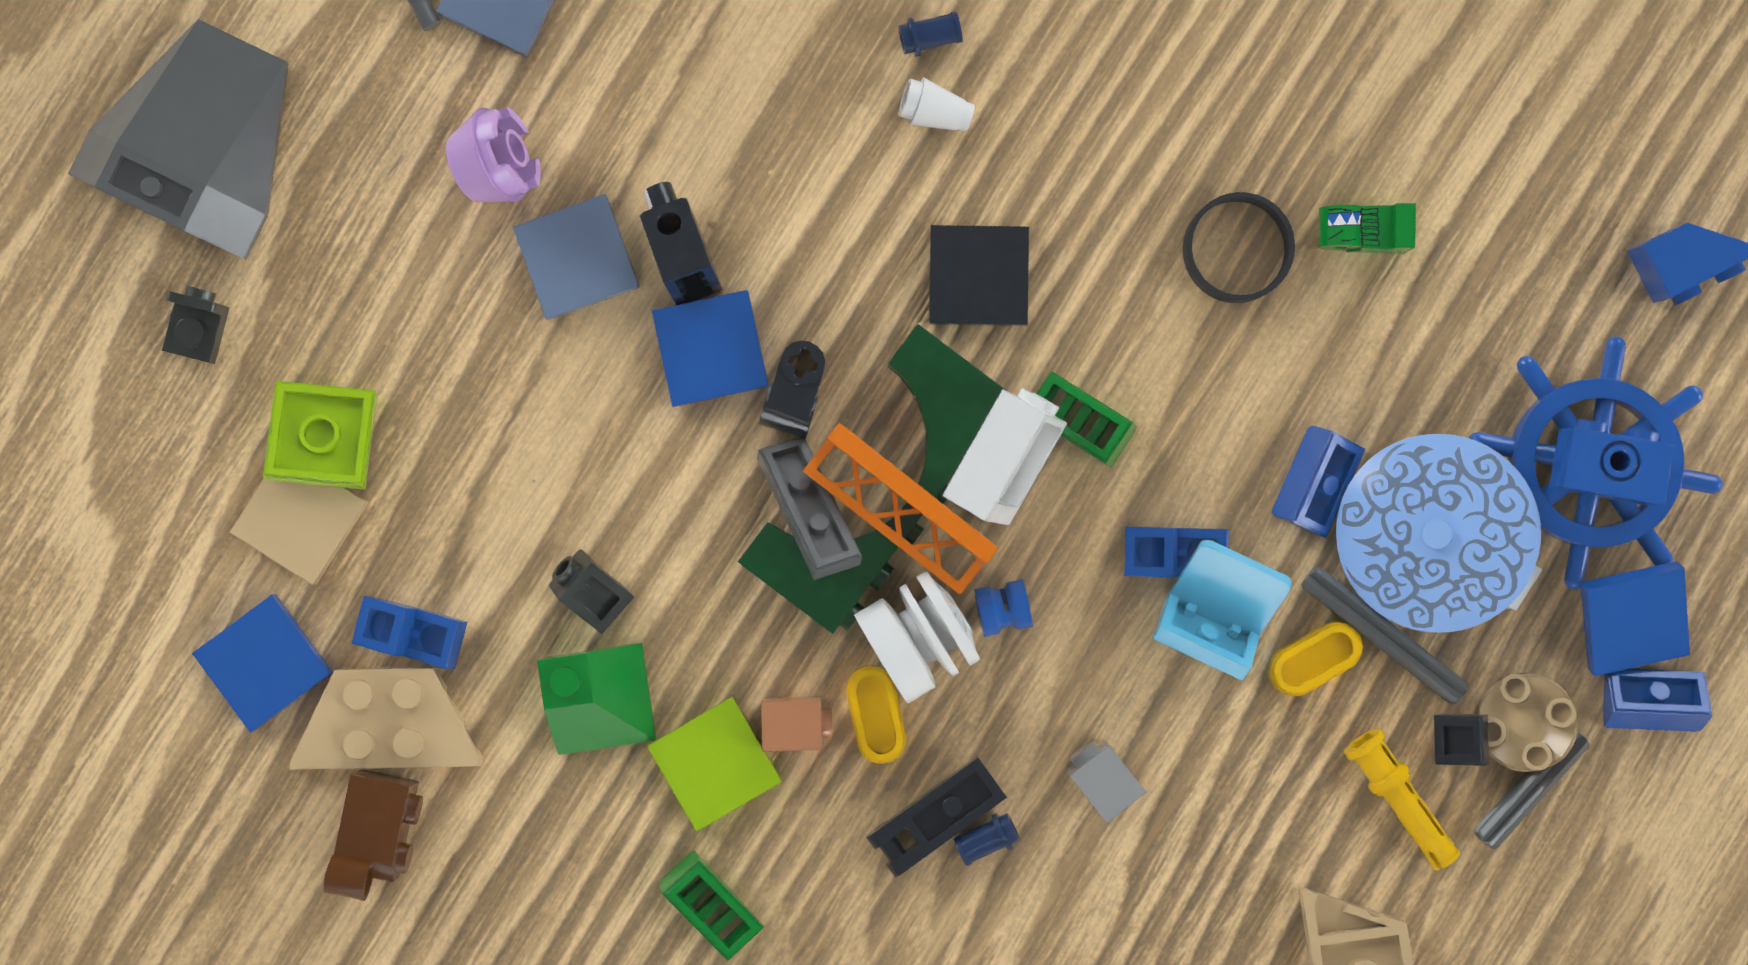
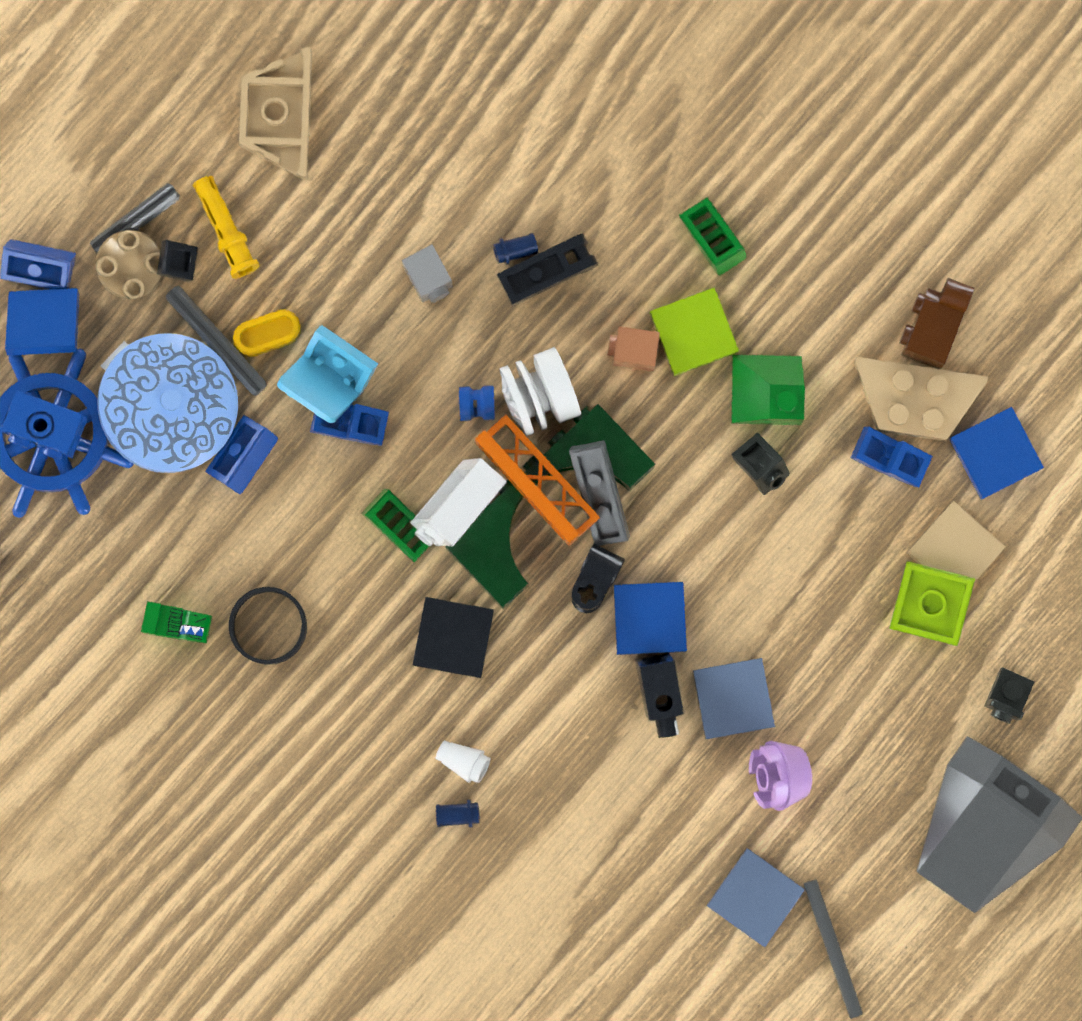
camera: 170 degrees left, 5 degrees down
(876, 714) = (577, 345): yellow tile -> none

